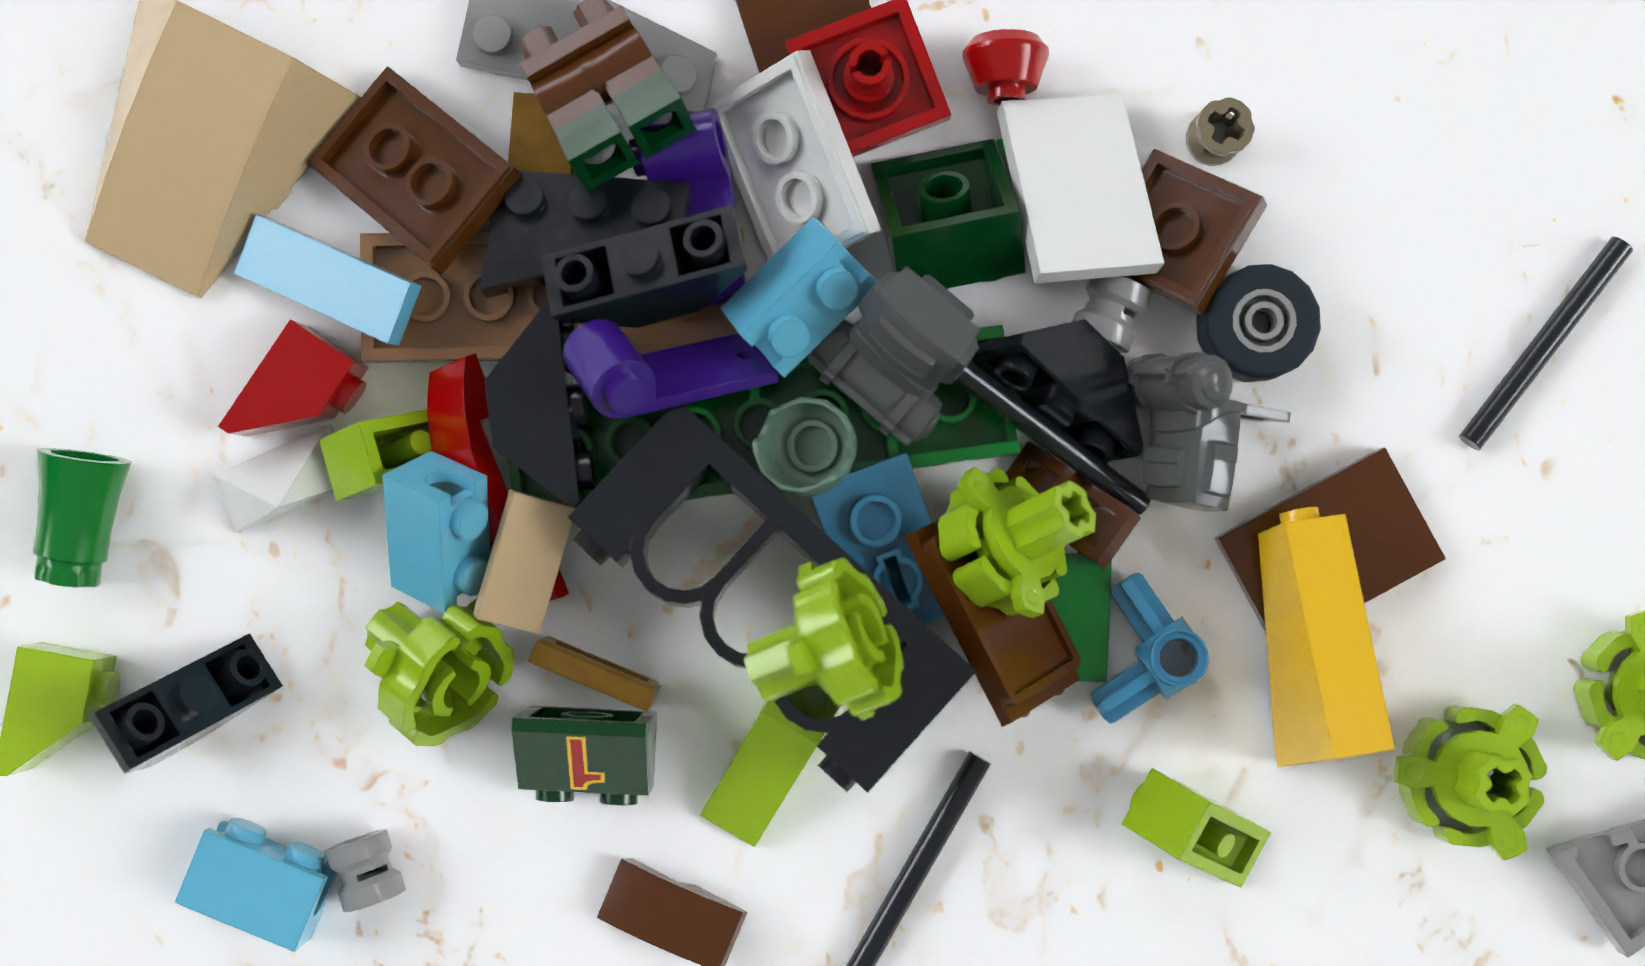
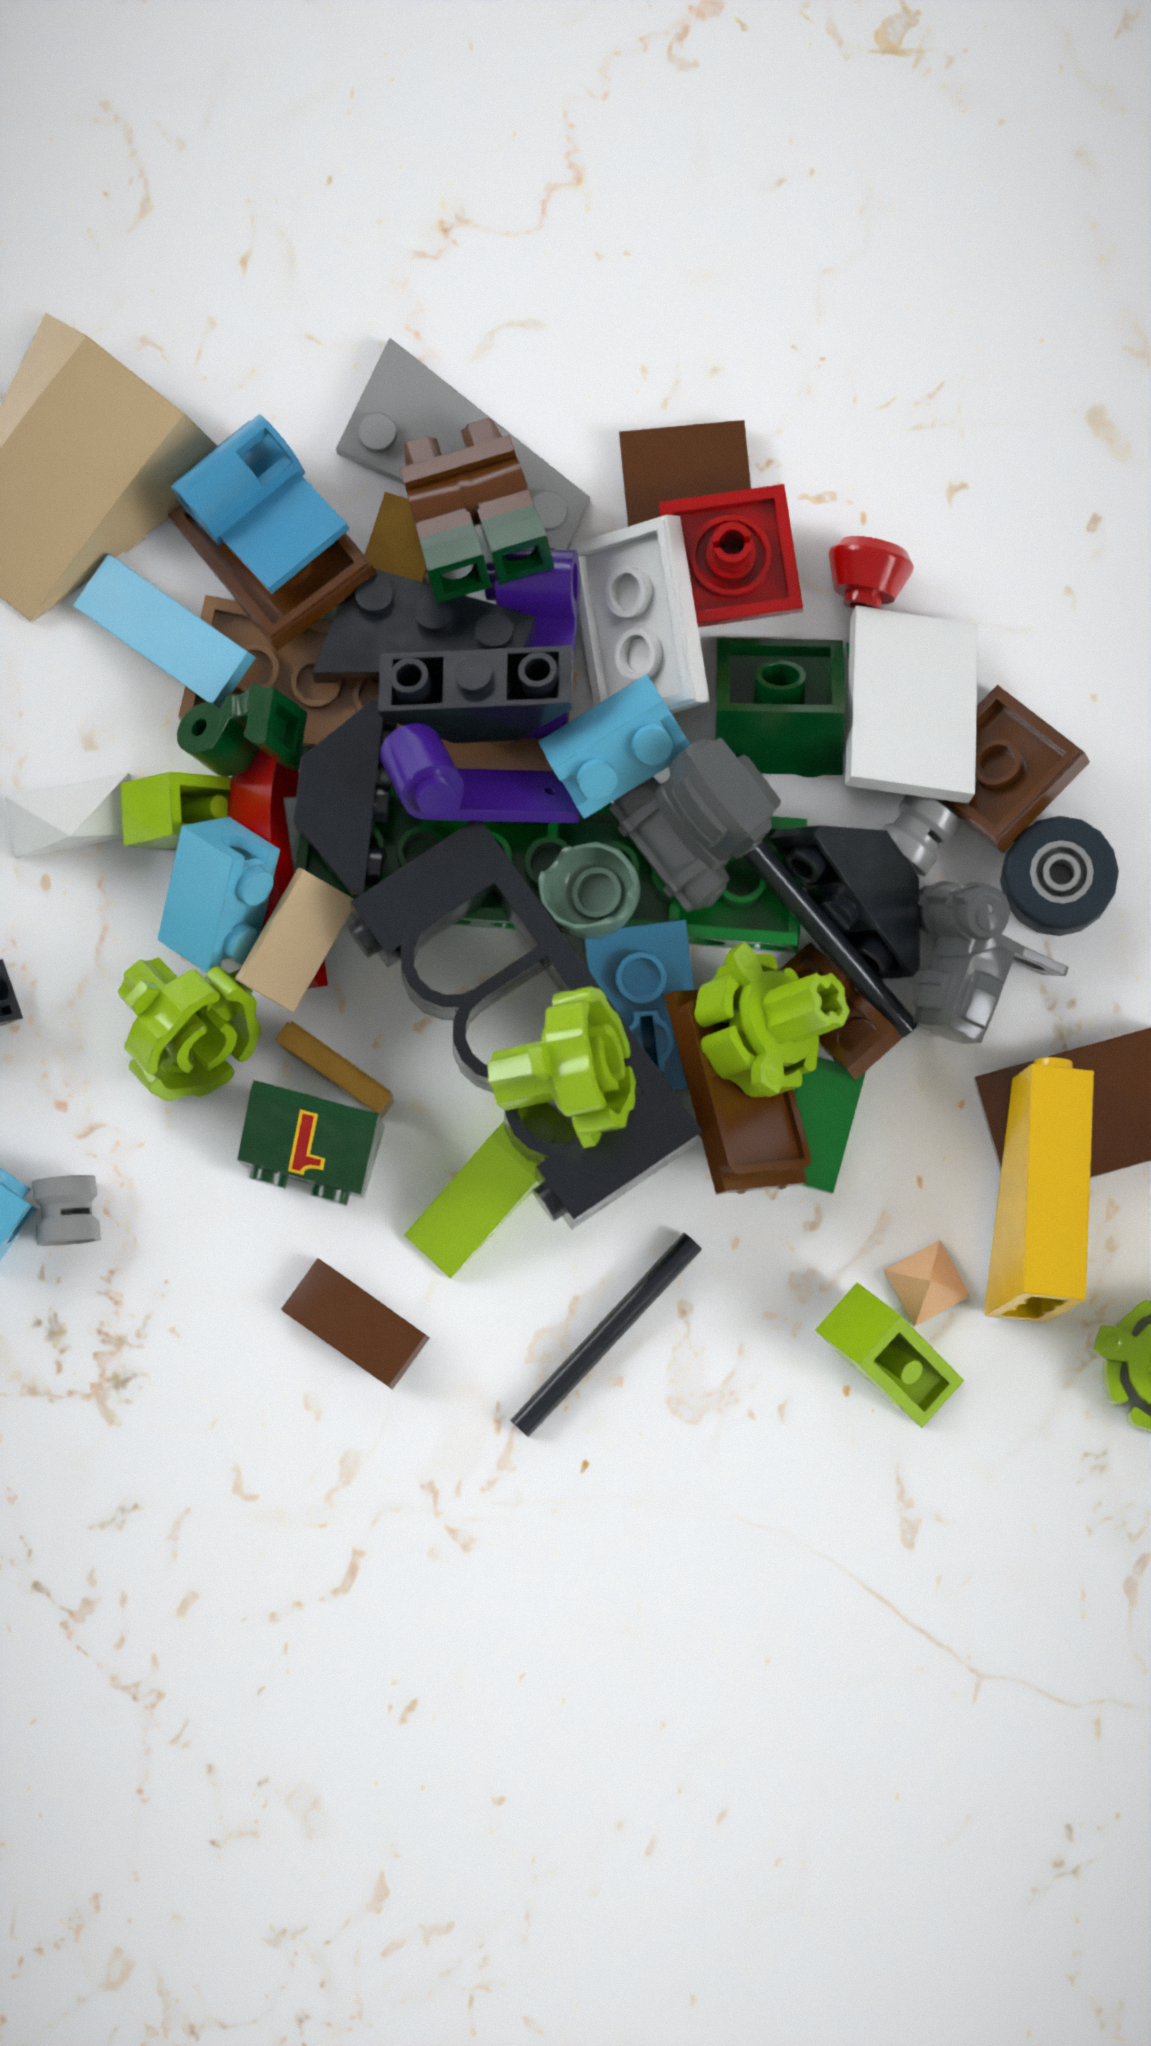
camera: 20 degrees right, 5 degrees down
(296, 385) = (110, 727): red slope -> none
(389, 131) = (260, 504): none -> dark azure piece
(421, 362) = (232, 735): none -> dark green leg
(1146, 676) = (893, 1154): dark azure axle -> none
(1214, 746) = (926, 1283): none -> light nougat slope
(1238, 133) = (1060, 663): dark tan bush -> none

